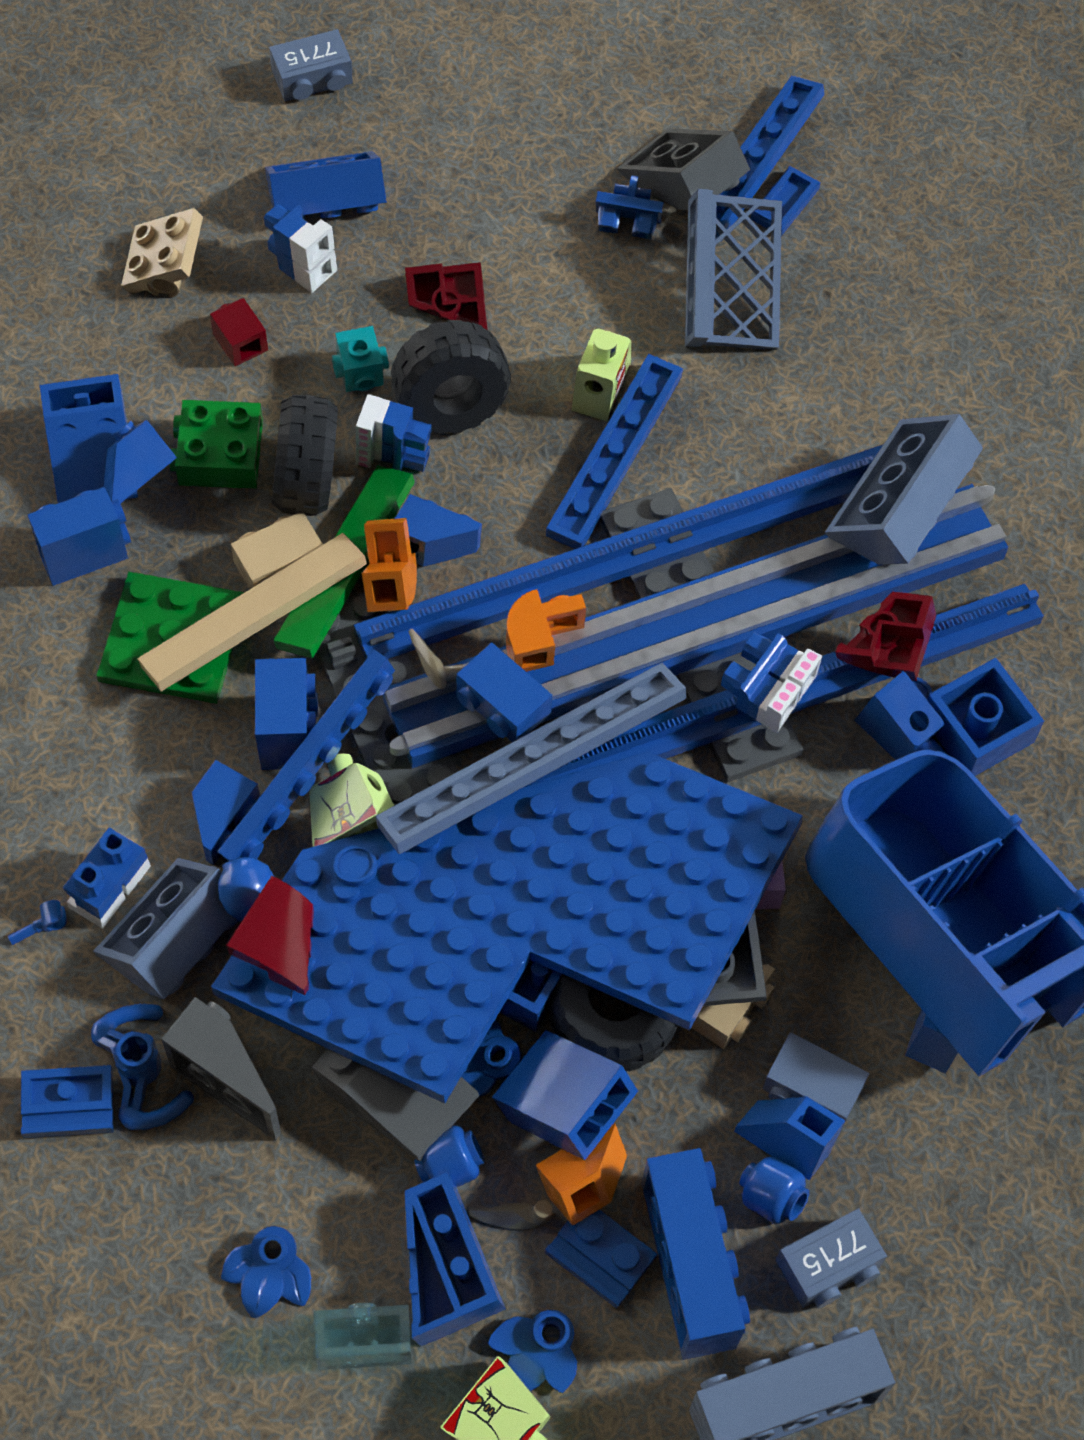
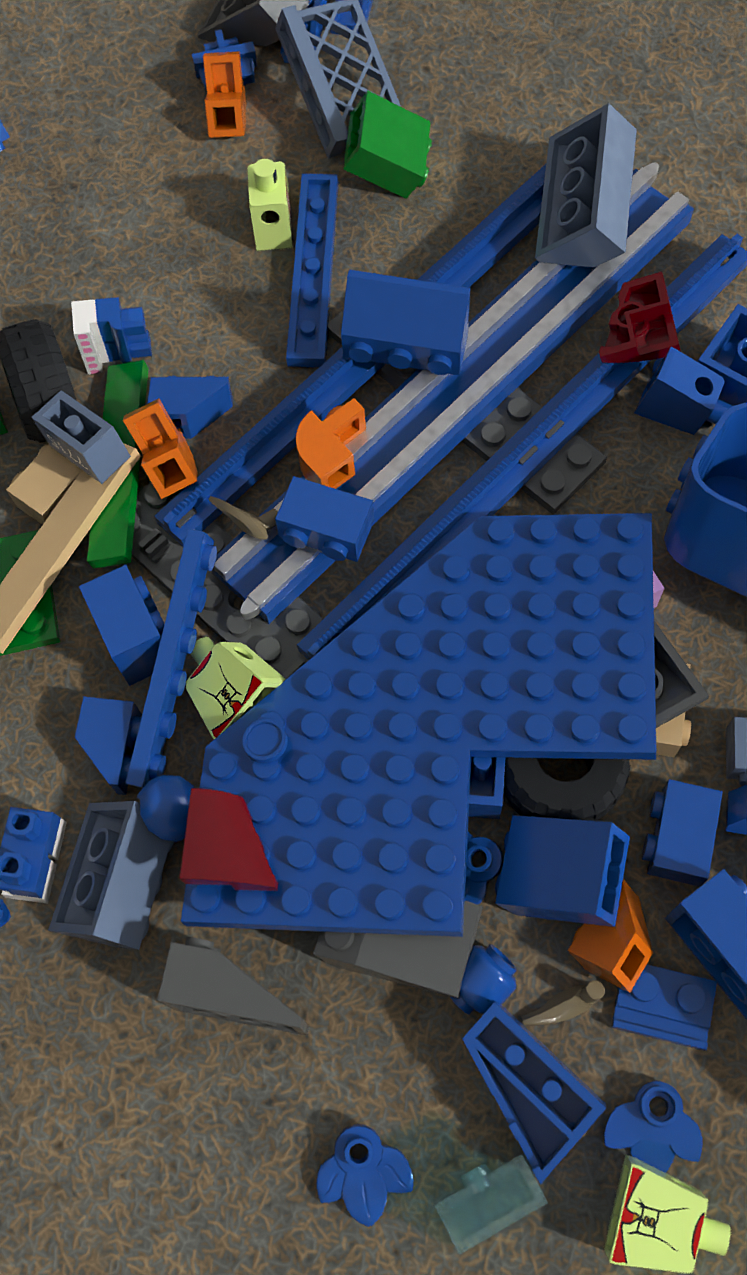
camera: 15 degrees left, 5 degrees up
(67, 1101) = (89, 1094): blue plate -> none
(137, 1065) = (141, 1025): blue piece -> none
(319, 525) = (81, 436): none -> sand blue brick
(359, 359) = (48, 279): teal brick -> none
(439, 291) = (101, 192): dark red slope -> none
(451, 375) = (120, 240): black tyre -> none
(530, 758) = (376, 571): sand blue plate -> none
(612, 247) = (225, 94): none -> orange brick
(664, 545) = (405, 322): none -> blue slope
(695, 1111) = (683, 832): none -> blue brick
(743, 361) = (387, 145): none -> green brick
(774, 683) = (564, 406): hips -> none

